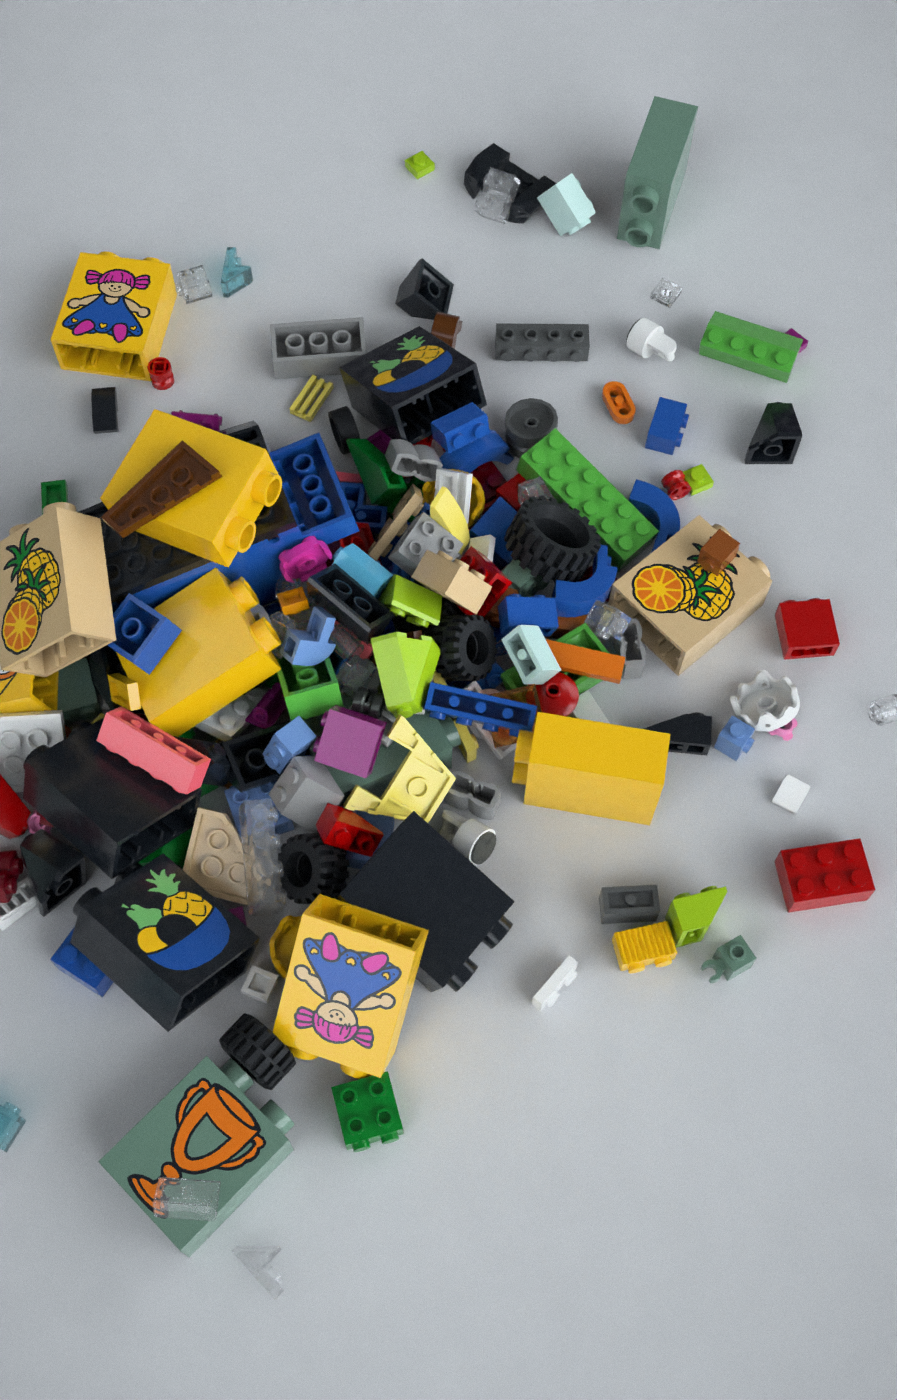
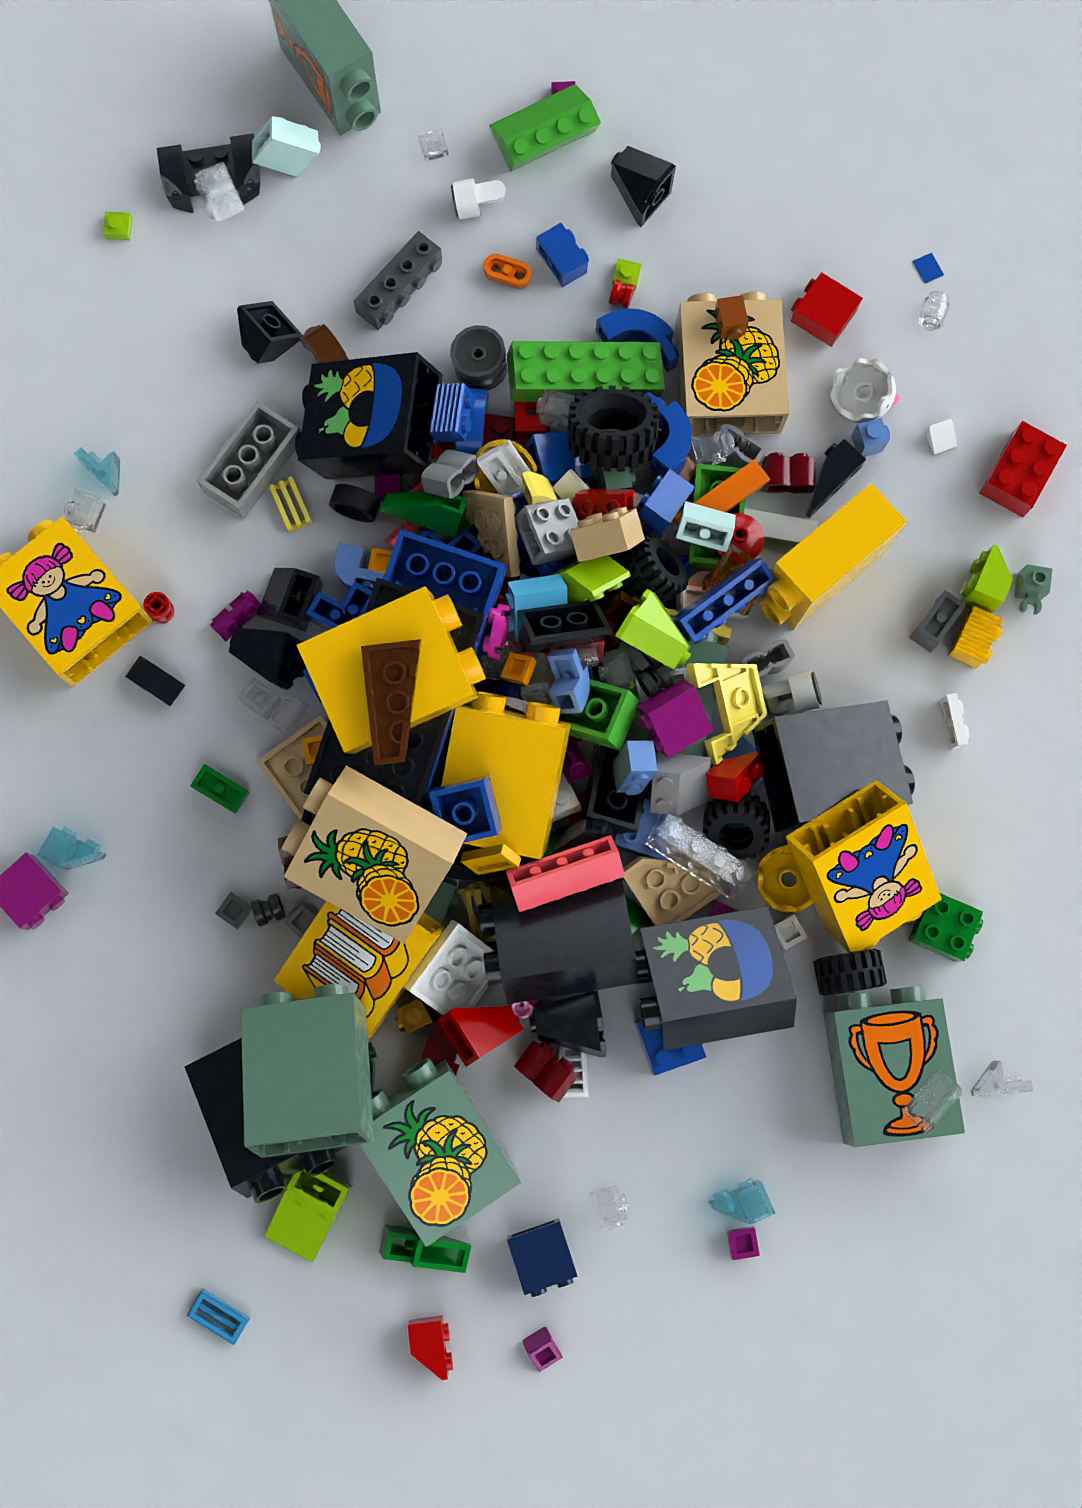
camera: 55 degrees left, 15 degrees up
(646, 700) = (789, 474): none -> dark red brick

